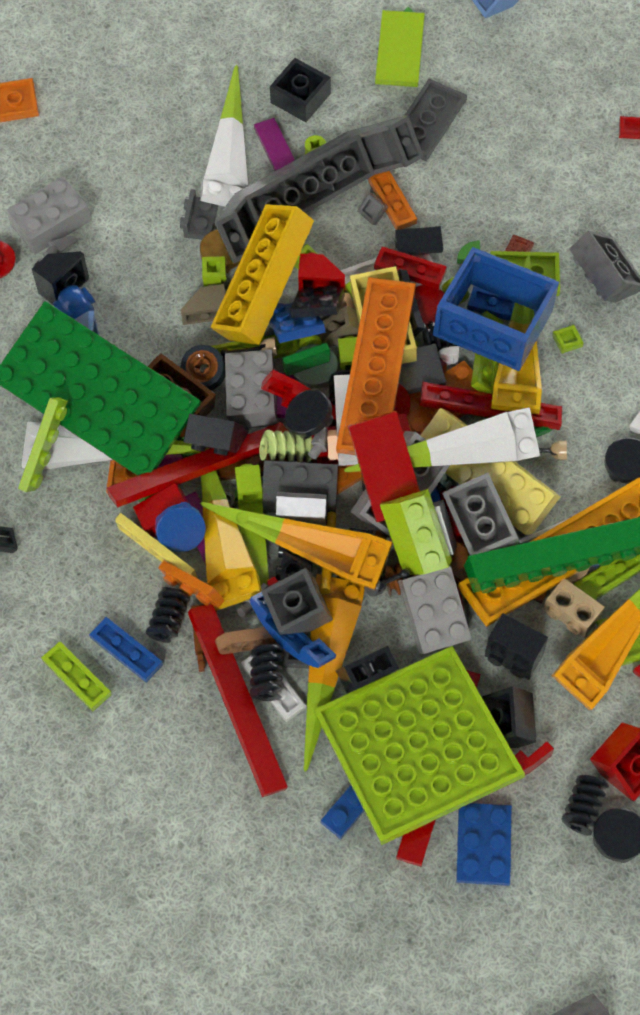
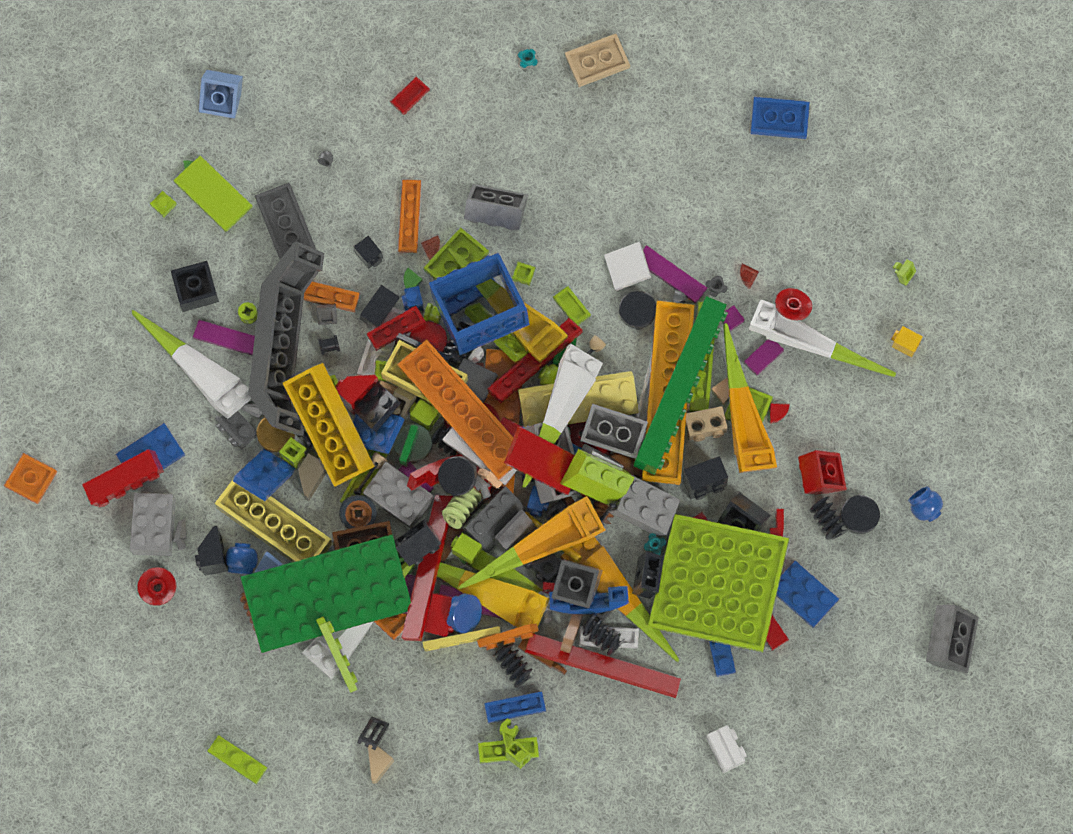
camera: 50 degrees left, 10 degrees up
(71, 160) = (122, 478): none -> red brick
(73, 689) = (523, 755): none -> lime piece
(115, 171) = (158, 440): none -> blue plate
(132, 298) = (273, 524): none -> light yellow brick
(170, 263) = (264, 474): none -> blue plate
(248, 890) = (726, 749): none -> white brick
(345, 231) = (329, 345): none -> black bush
(345, 518) = (534, 505): none -> blue brick
(355, 20) = (163, 204): none -> lime plate
(400, 652) = (653, 539): none -> teal plate
(453, 259) = (412, 298): none -> blue brick
(462, 198) = (368, 252): none -> black brick
(516, 106) = (325, 158): none -> dark grey hinge
(529, 208) = (409, 216): none -> orange tile
(576, 402) = (571, 305): none -> lime tile
(619, 597) = (722, 391): none -> light nougat tile

